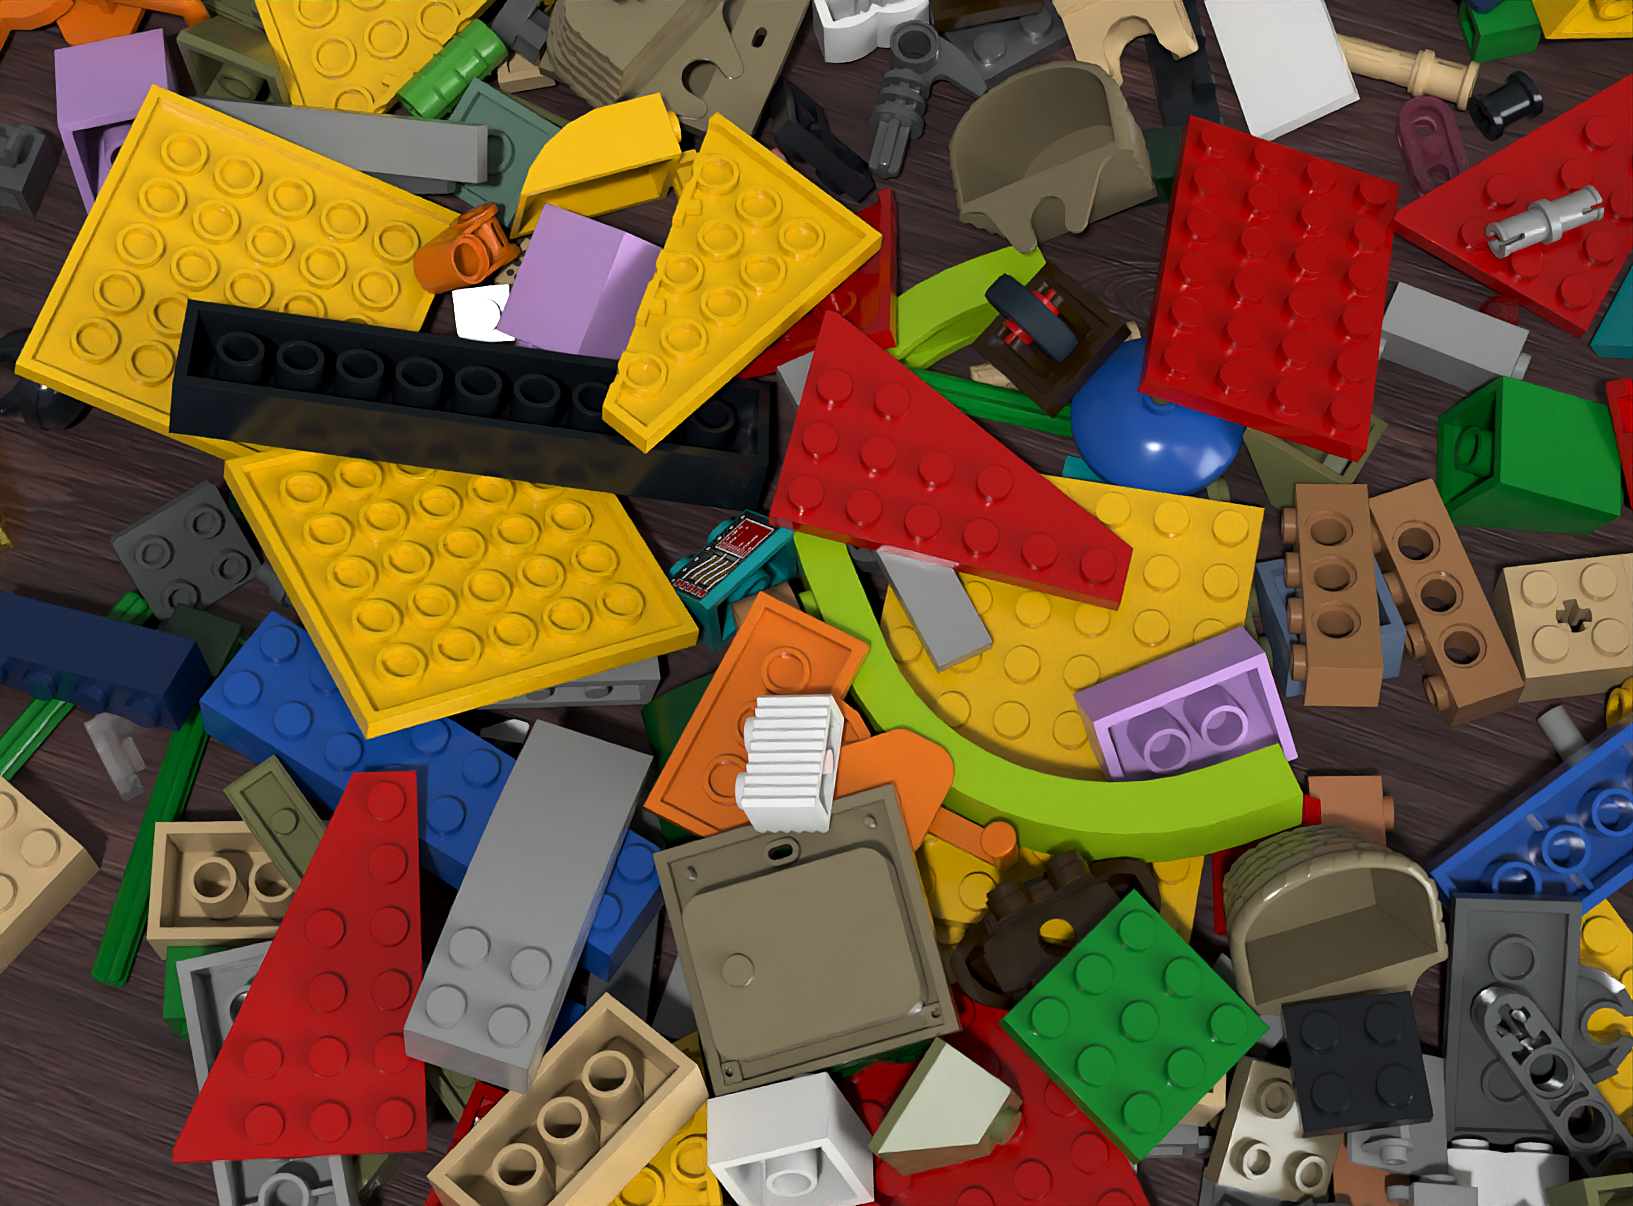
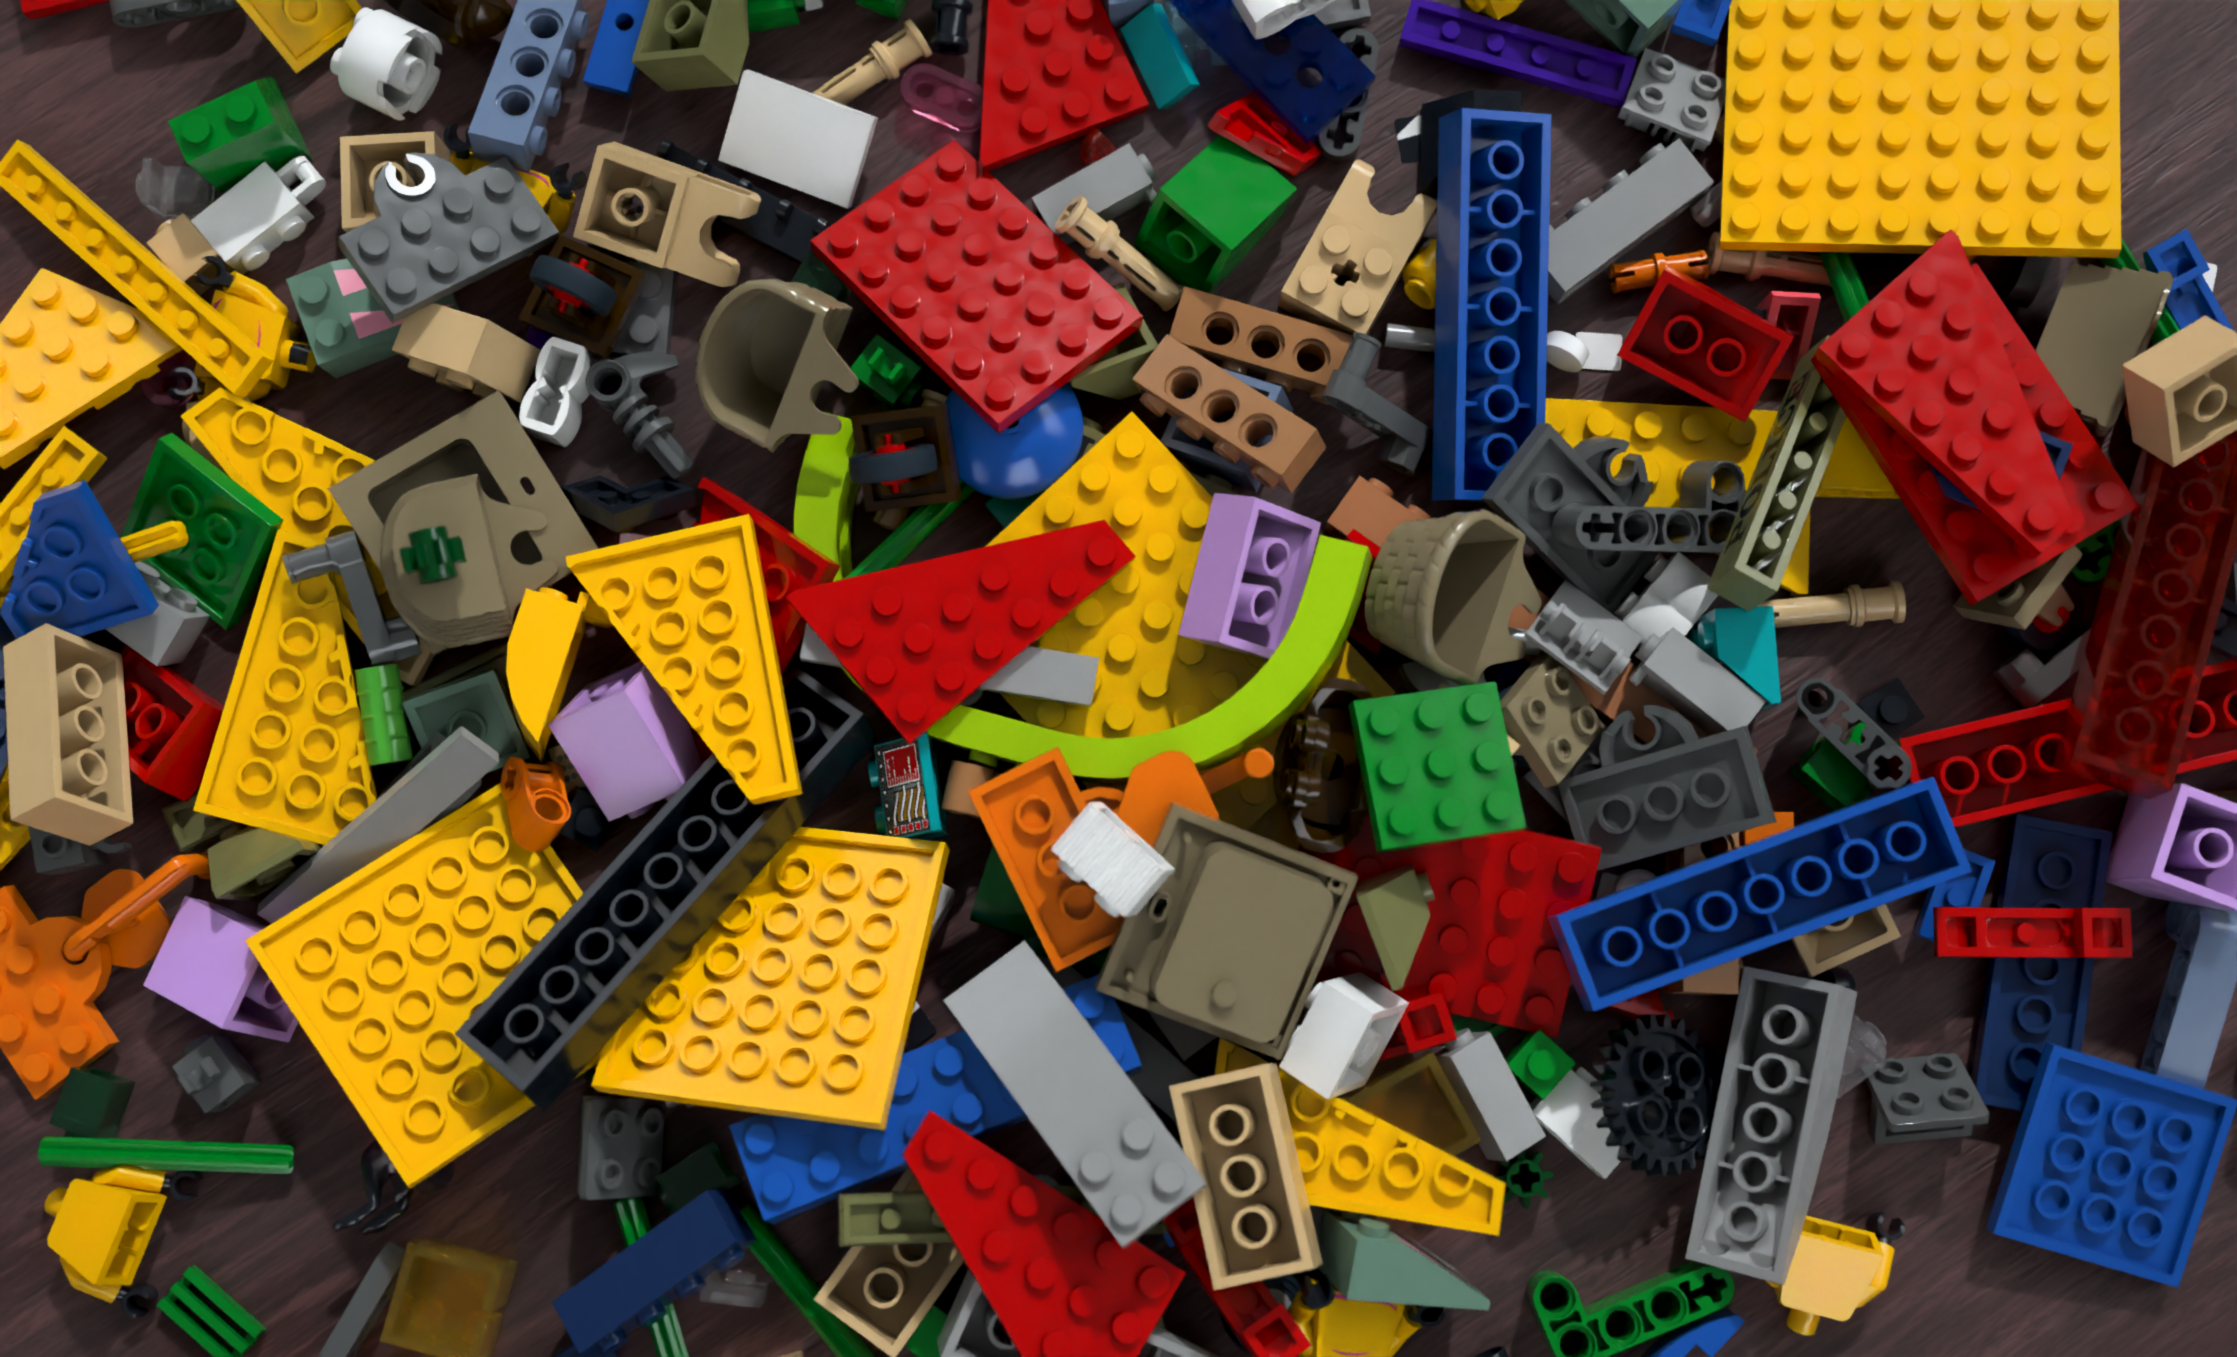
camera: 55 degrees left, 15 degrees up
(1123, 277) = (889, 375): none -> green brick
(1356, 1064) = (1555, 645): black plate -> none
(1411, 369) = (1104, 242): none -> tan pin
(1453, 693) = (1348, 393): none -> dark grey beam
(1544, 221) = (1063, 72): light grey pin -> none

